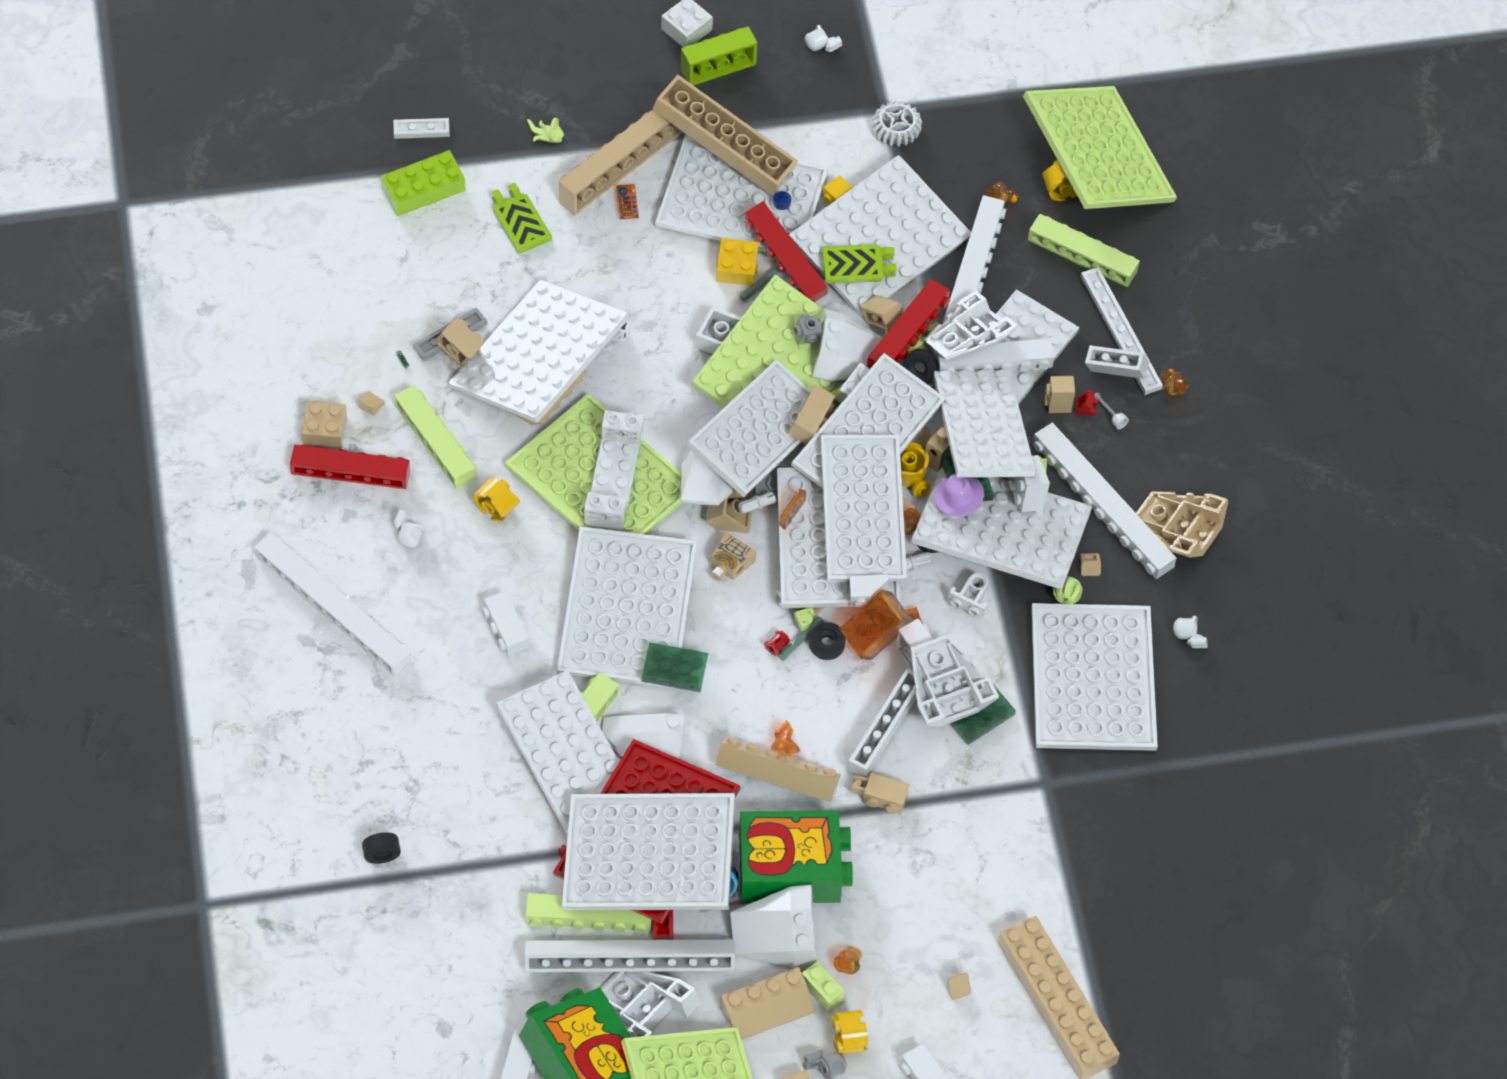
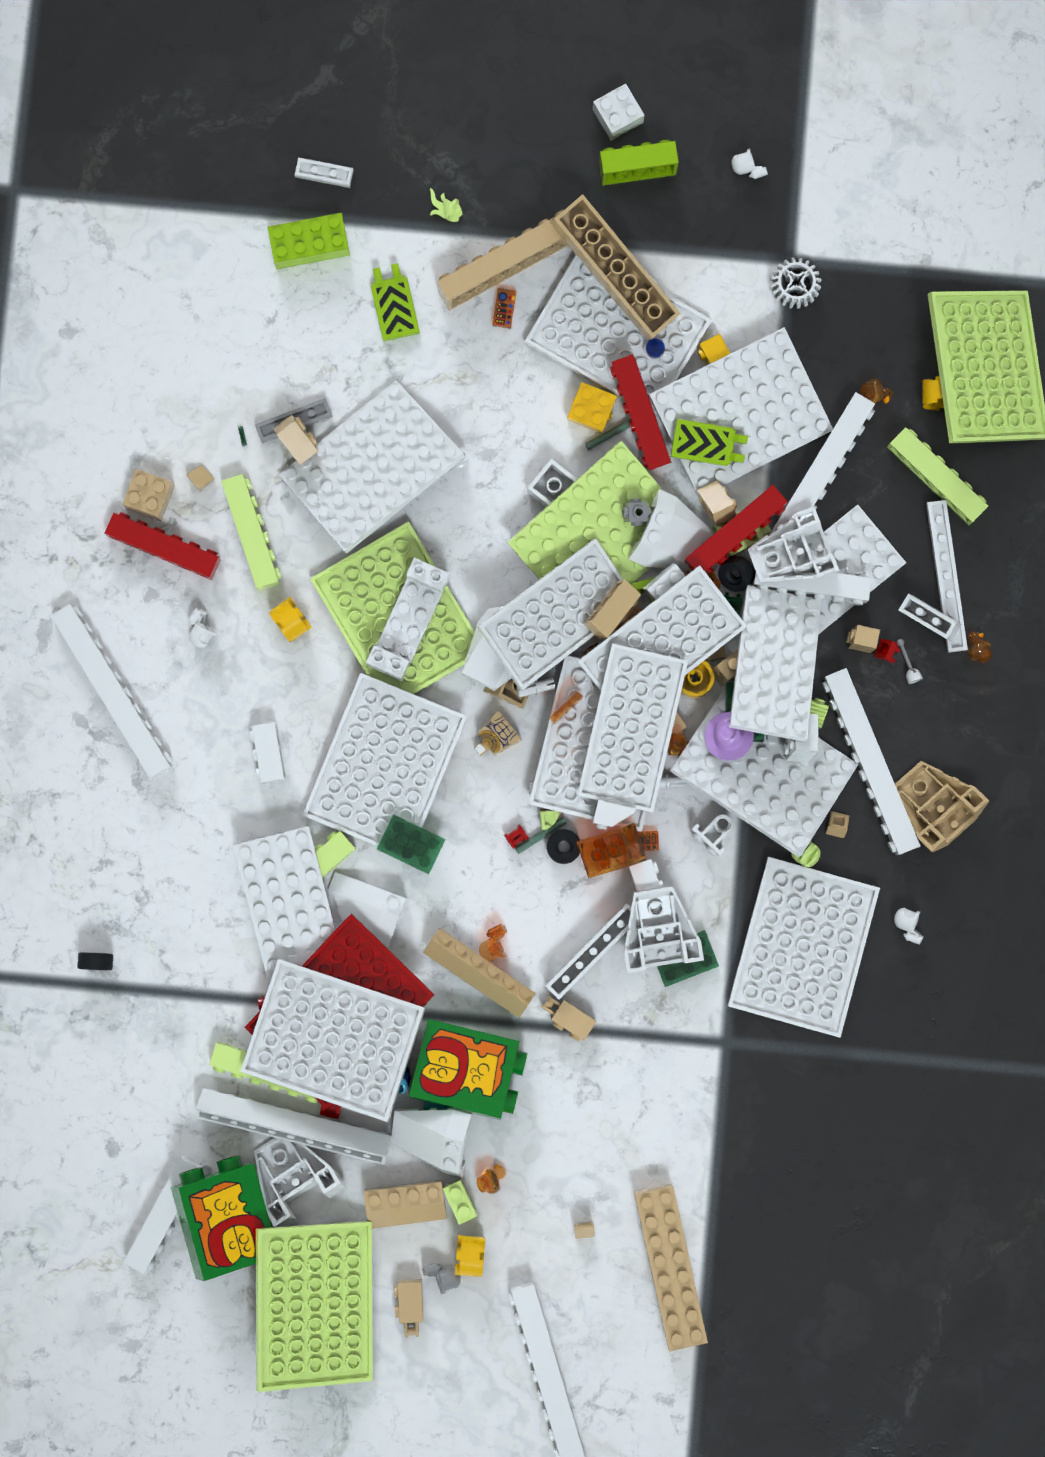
camera: 15 degrees right, 25 degrees up
(920, 488) = (699, 704): yellow plate -> none

